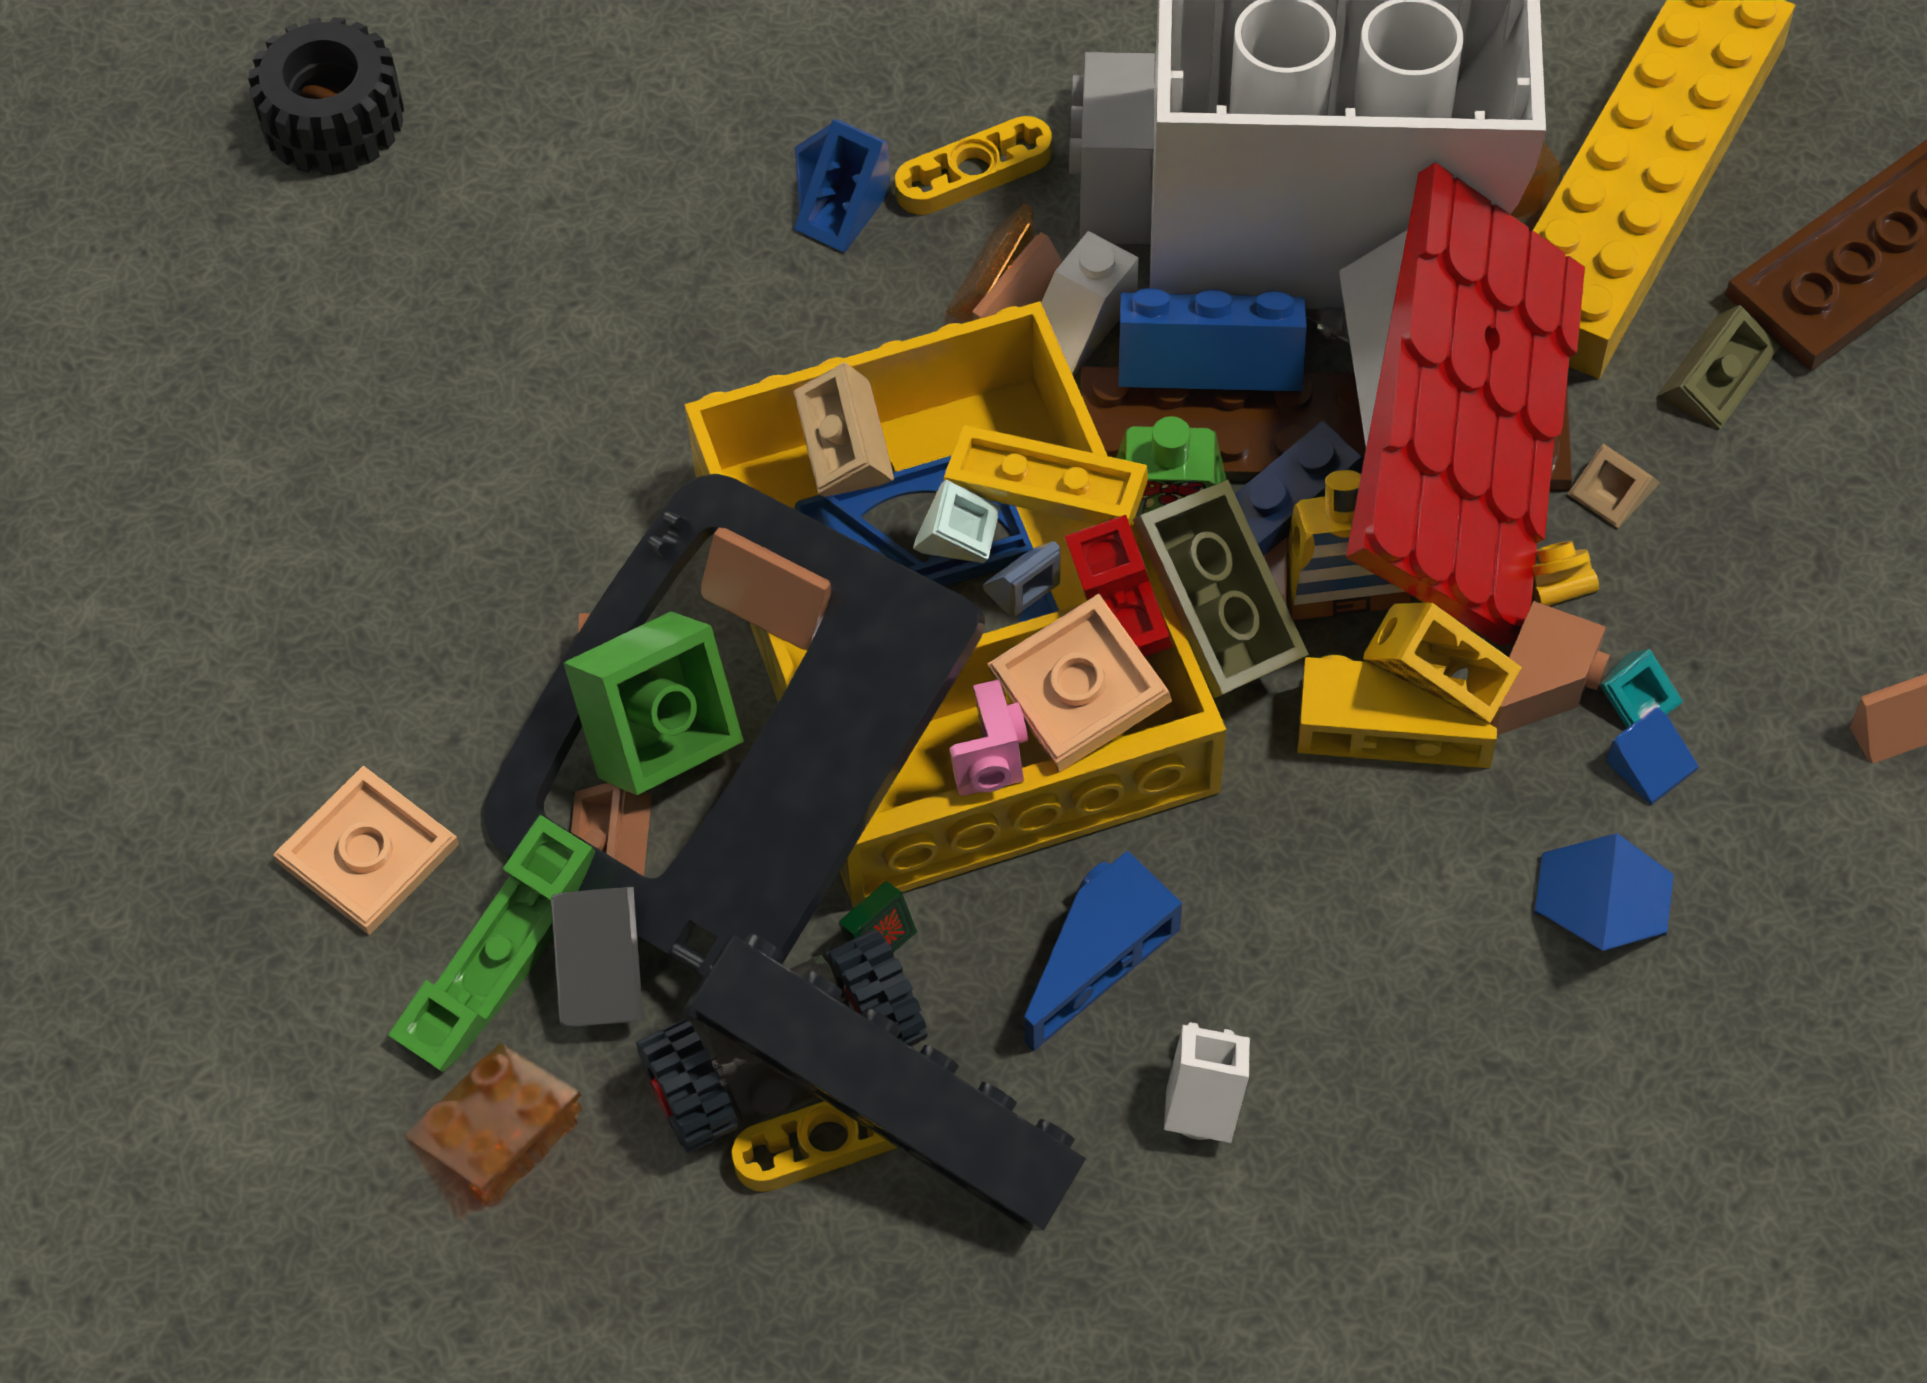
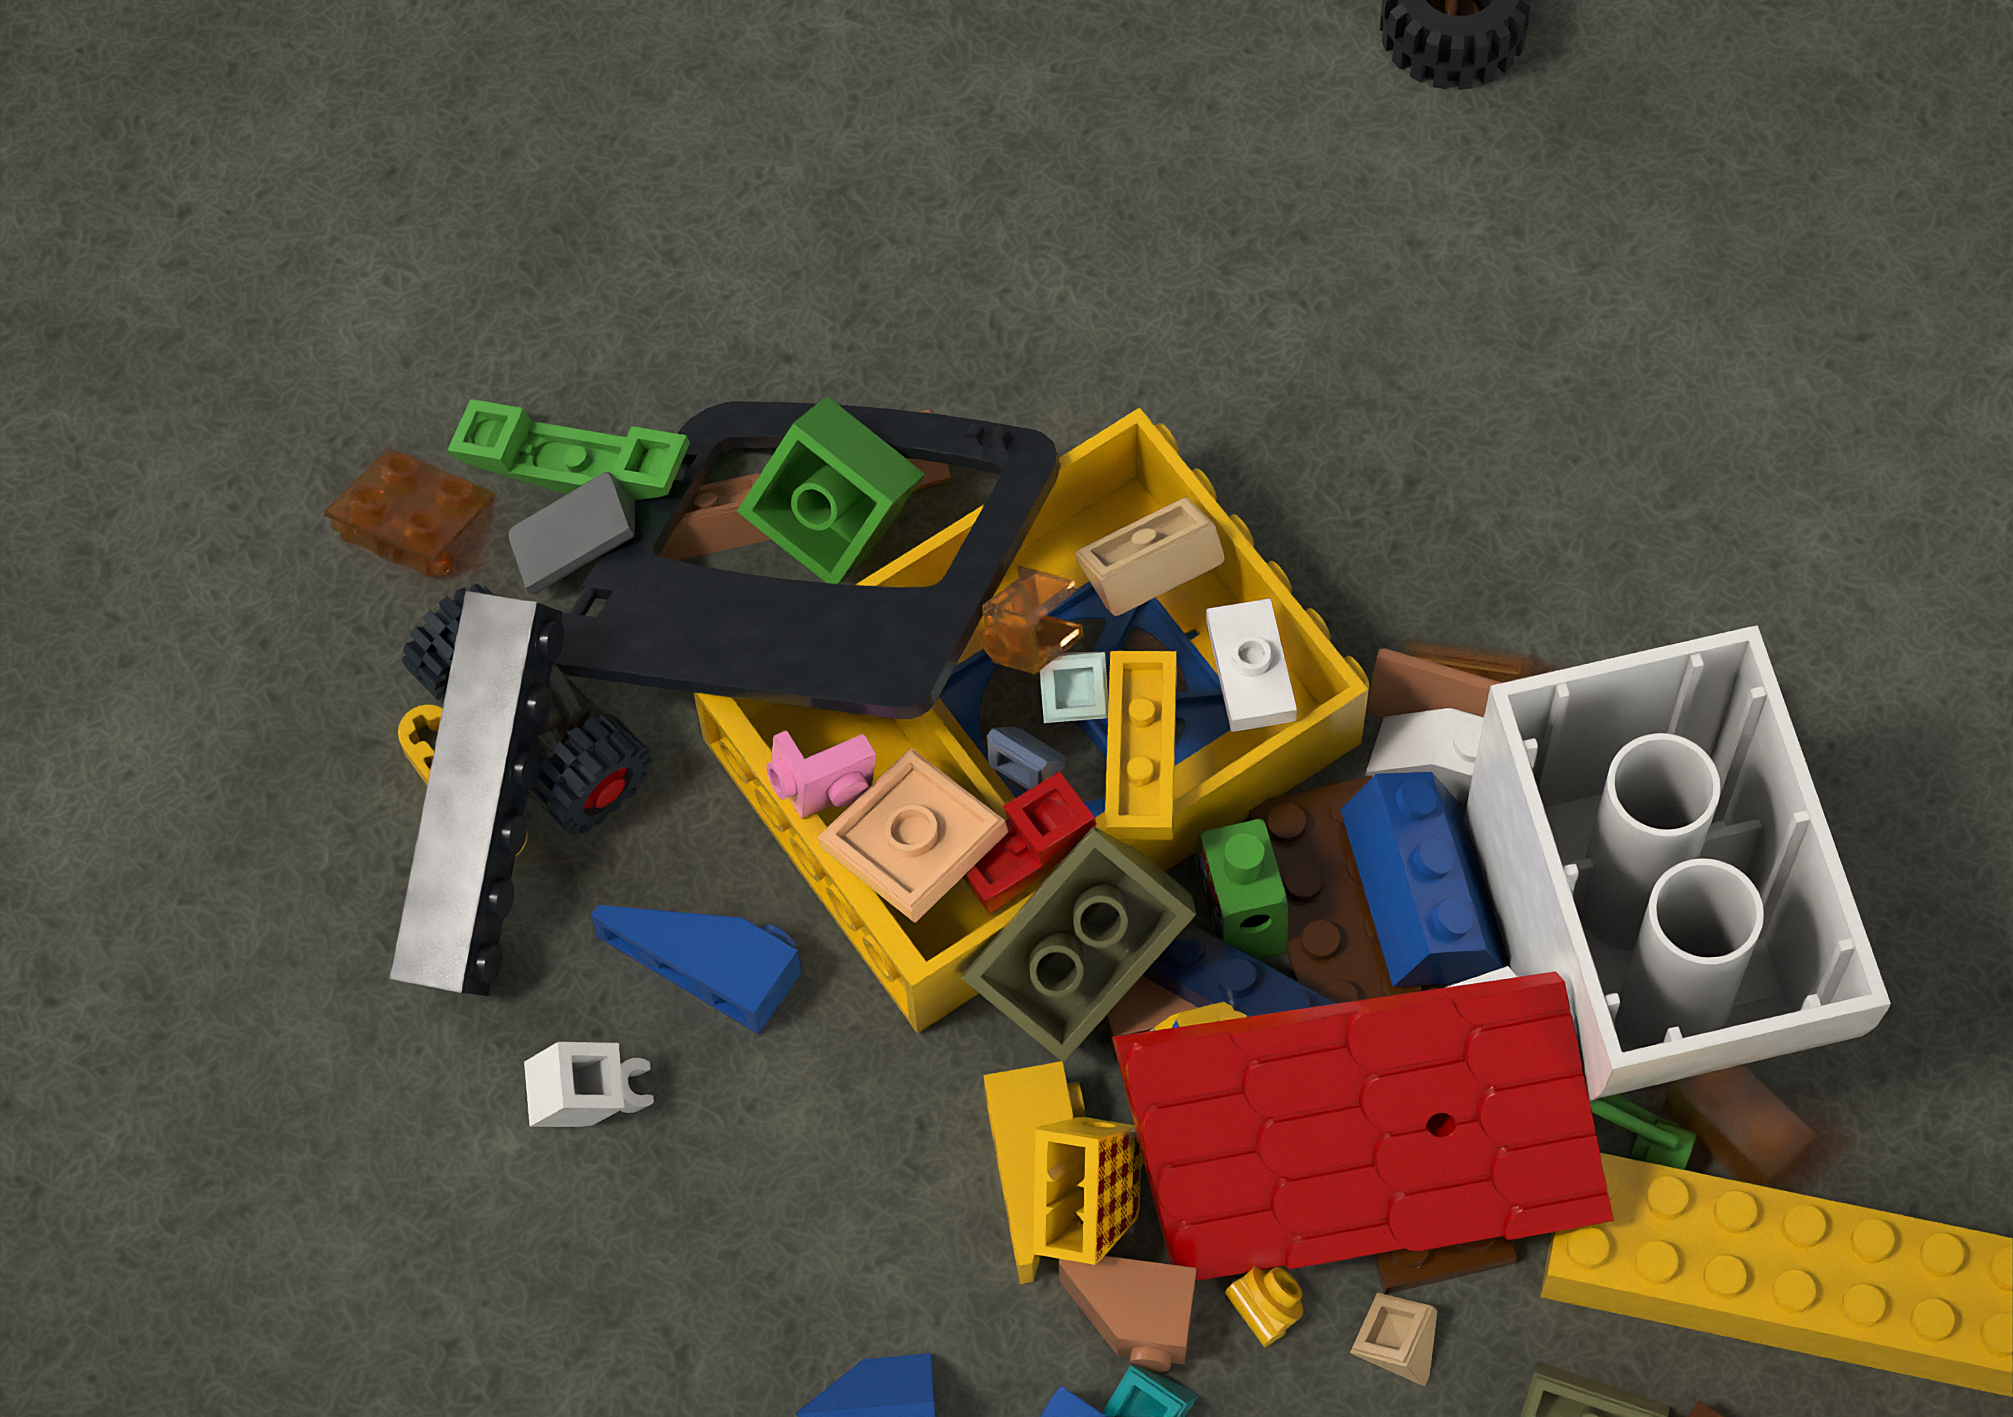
camera: 75 degrees right, 5 degrees up
(366, 850) = (653, 324): light nougat tile -> none
(765, 588) = (937, 528): nougat slope -> none
(840, 183) = (1509, 494): blue slope -> none
(881, 911) = (677, 761): dark green tile -> none
(895, 523) = (1017, 622): none -> clear orange window
(981, 146) = (1576, 566): yellow beam -> none
(989, 379) = (1251, 665): none -> white plate

